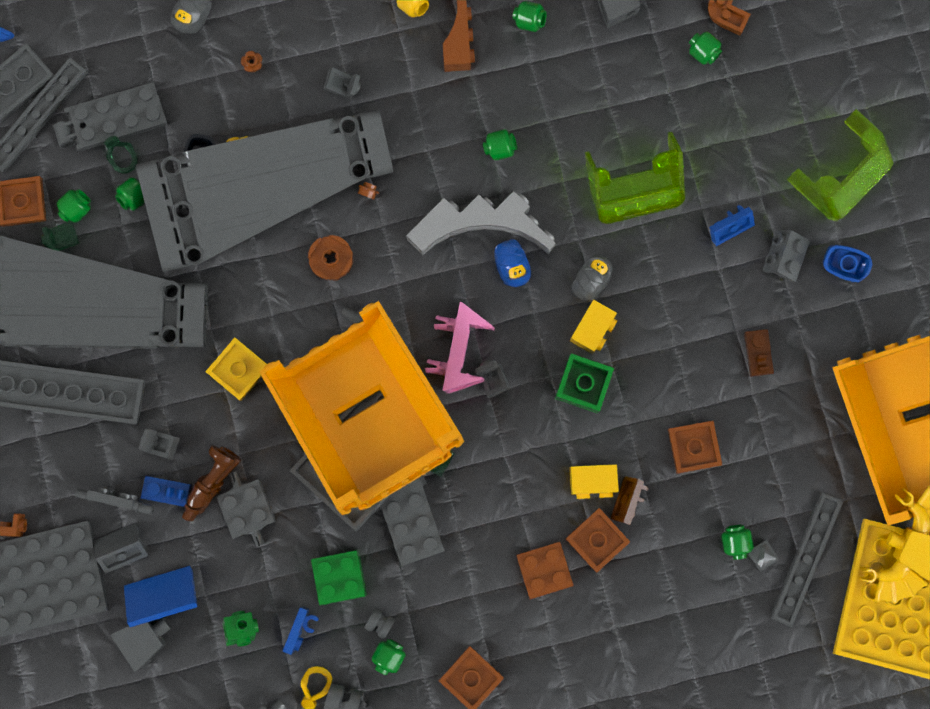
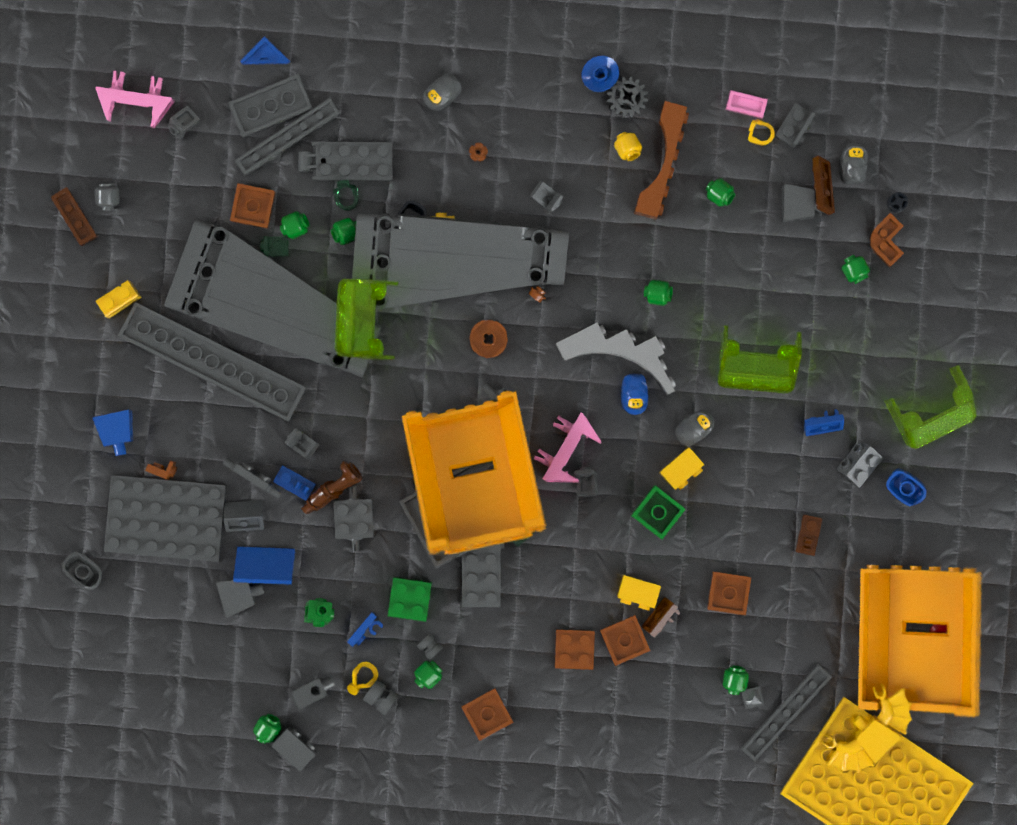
camera: 20 degrees right, 5 degrees up
(174, 279) = (357, 318): none -> clear neon green windscreen
(237, 369) = (383, 404): yellow plate -> none

